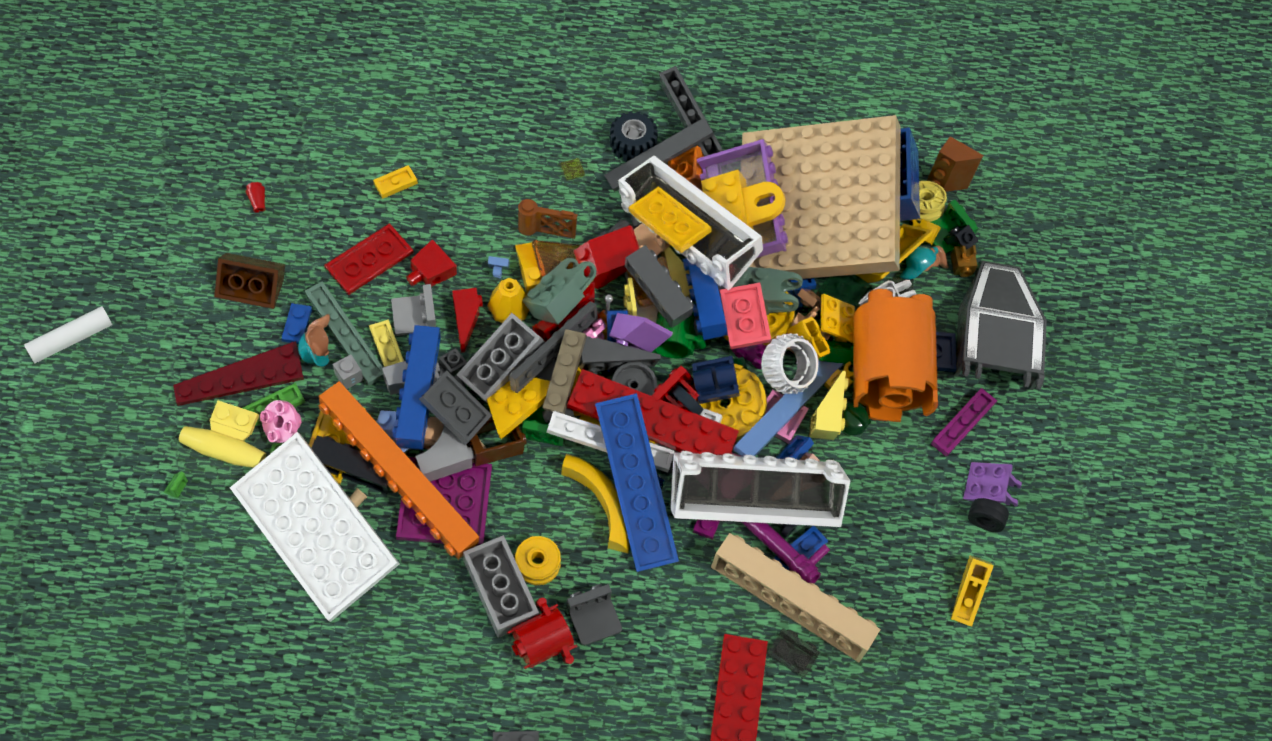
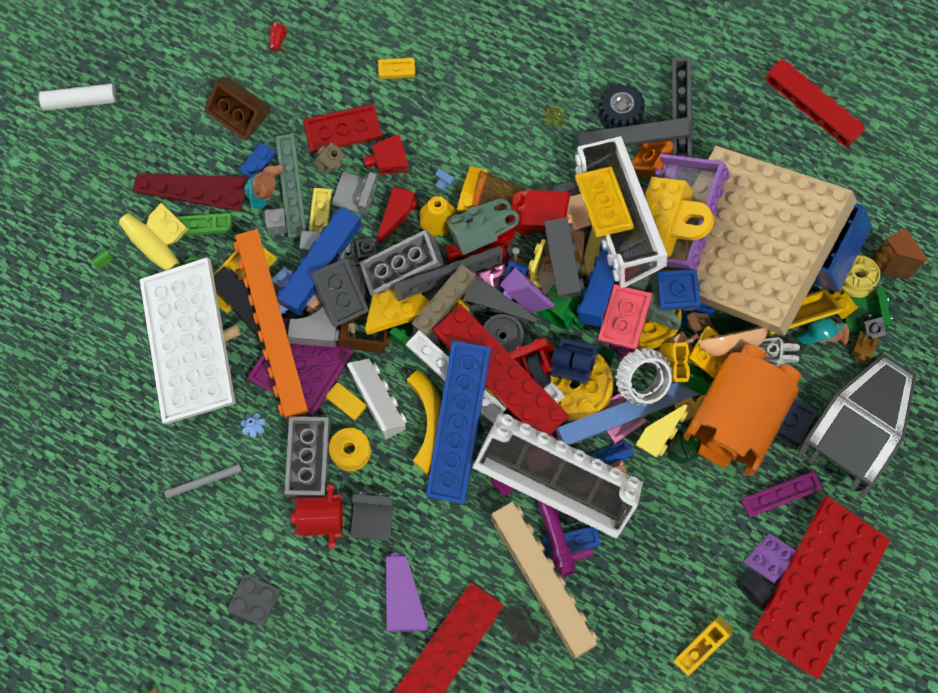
camera: 35 degrees right, 10 degrees up
(280, 421) = (202, 241): bright pink plate -> none
(374, 287) = (328, 158): none -> dark tan brick
(399, 661) = (202, 481): none -> light grey bar
(424, 581) = (252, 425): none -> light blue plant
(508, 516) = (346, 401): none -> yellow tile
(532, 218) = (493, 151): dark orange piece -> none
(539, 498) = (377, 398): none -> white slope
(668, 682) = (402, 598): none -> medium lavender slope
(781, 270) = (678, 289): none -> blue plate
(805, 68) = (815, 103): none -> red brick
(852, 299) = (733, 342): none -> light nougat brick
(1045, 489) = (820, 588): none -> red plate

